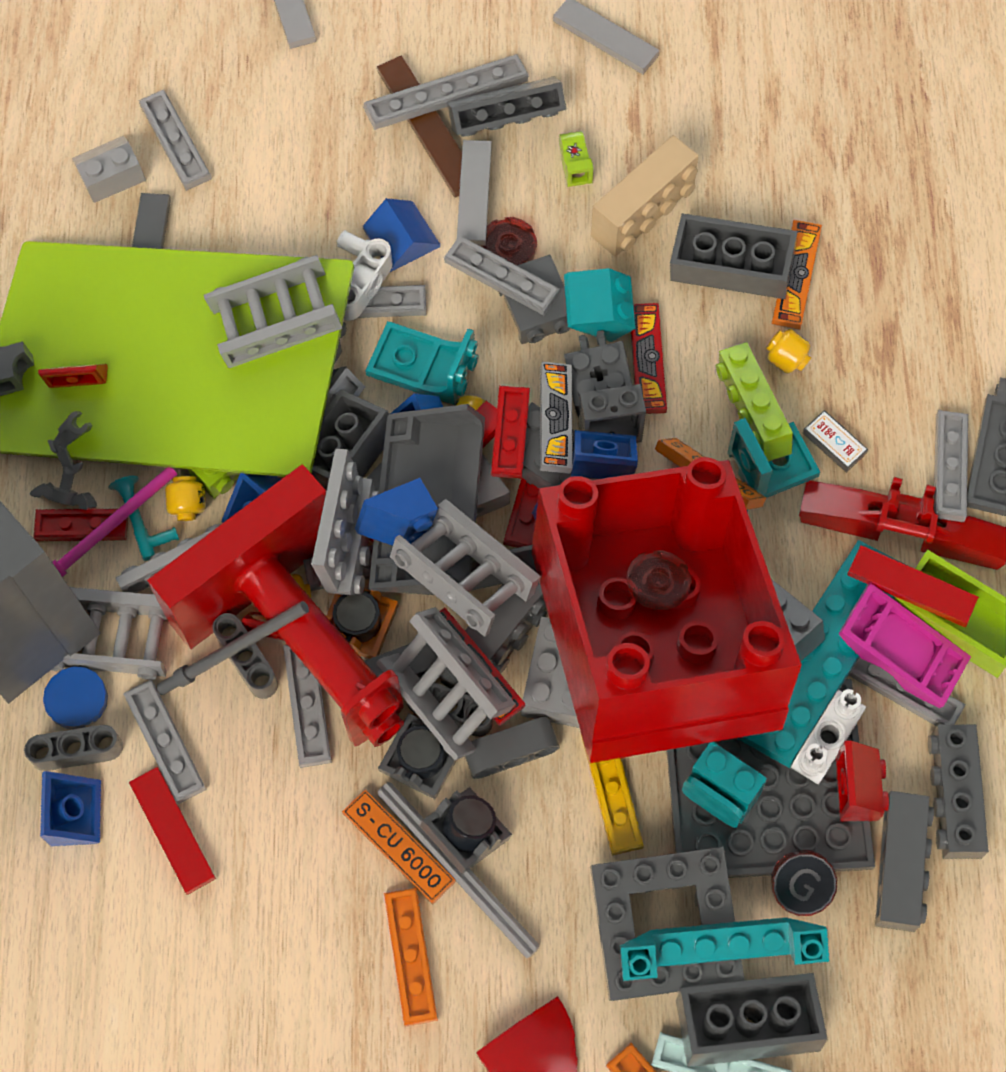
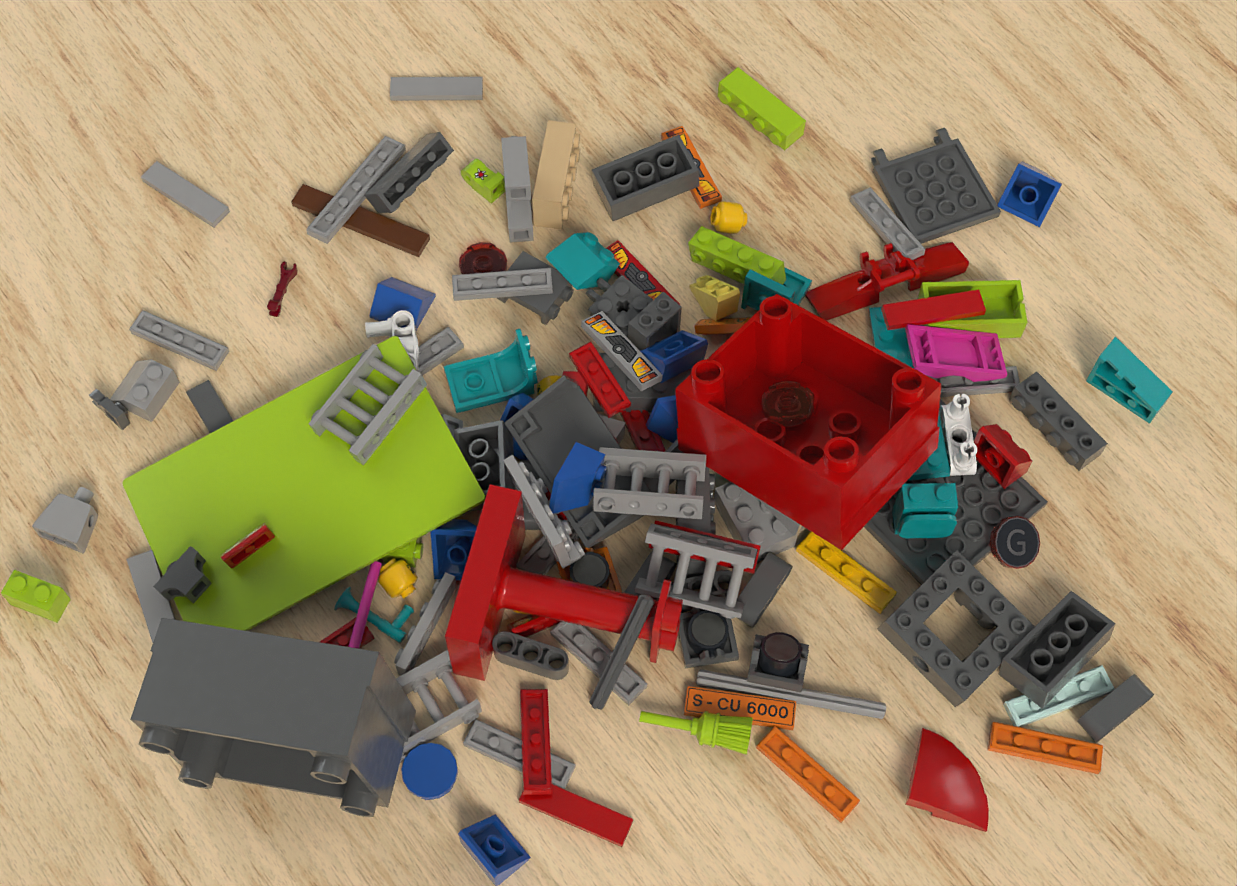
camera: 40 degrees left, 5 degrees down
(60, 741) = (462, 791): dark grey beam -> none
(65, 171) = (115, 412): none -> dark grey plate
(67, 434) = (279, 588): dark grey piece -> none
(184, 739) = (535, 742): none -> red tile
(186, 674) = (501, 696): dark grey bar -> none
(283, 160) = (286, 276): none -> dark red piece
(315, 710) = (621, 651): none -> dark grey axle
(350, 846) = (709, 729): none -> lime piece
(474, 191) = (433, 242): light grey tile -> none
(584, 181) = (517, 188): none -> light grey arch
(705, 423) = (715, 297): none -> light yellow slope
(723, 942) = (1010, 605): teal slope -> none
(835, 441) = (803, 256): tile -> none
(903, 862) = (1064, 488): dark grey brick -> none
(916, 257) = (761, 108): none -> lime brick

